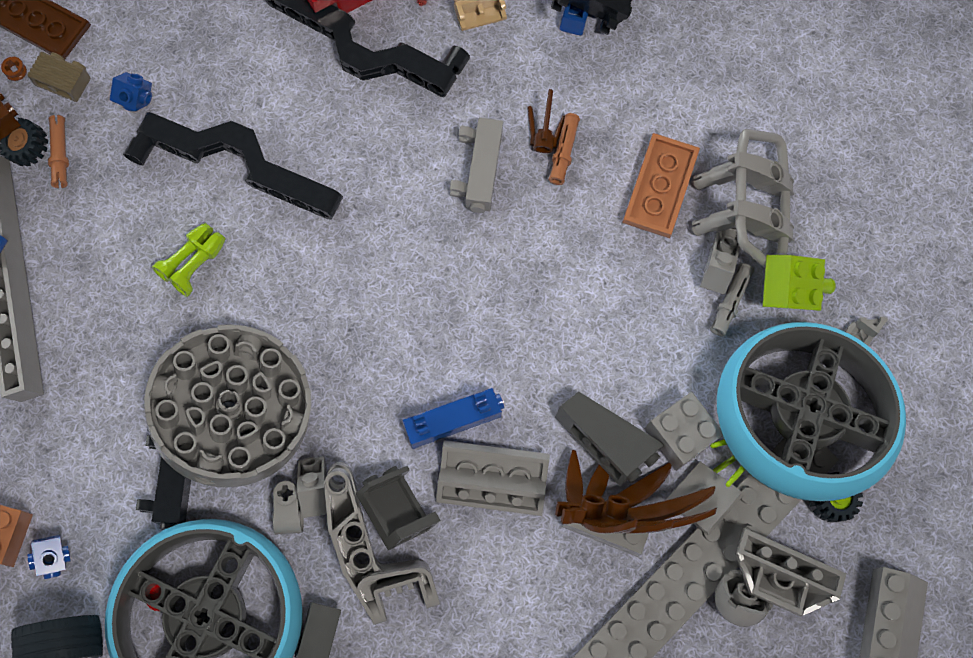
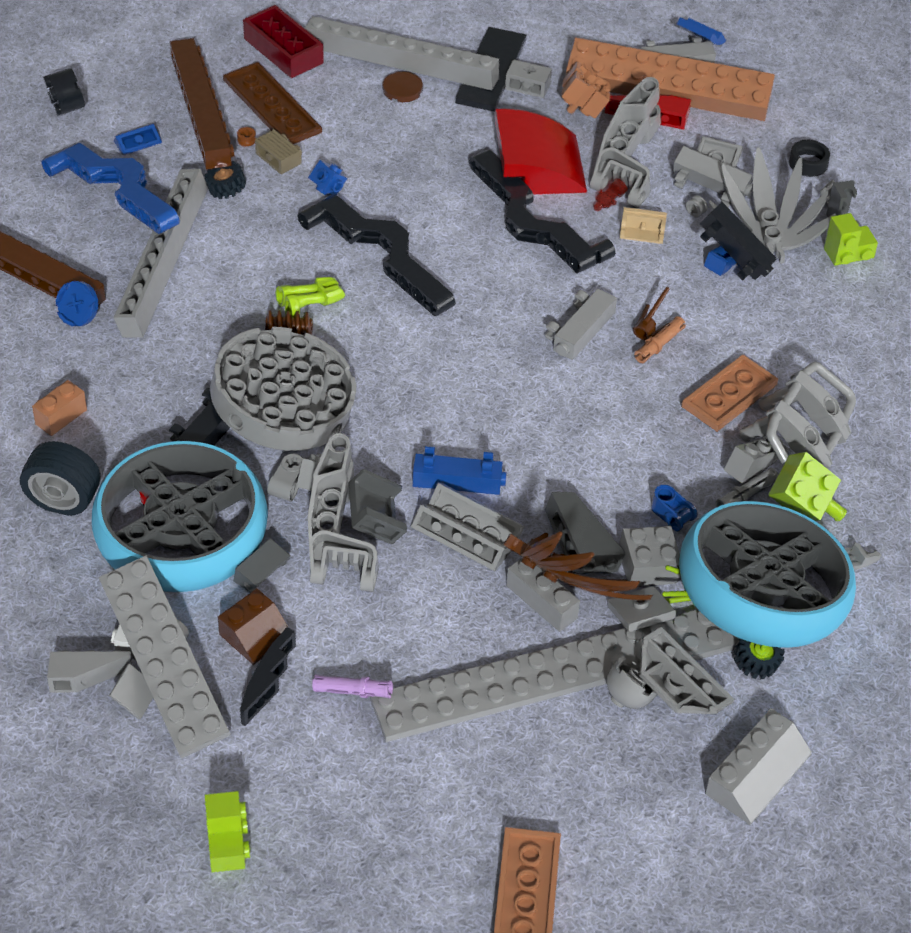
camera: 25 degrees right, 25 degrees down
(44, 546) = (85, 431): brick -> none
(58, 160) = (245, 201): nougat pin -> none
(189, 309) = (296, 323): none -> reddish brown piece
(677, 358) = (672, 507): none -> blue piece

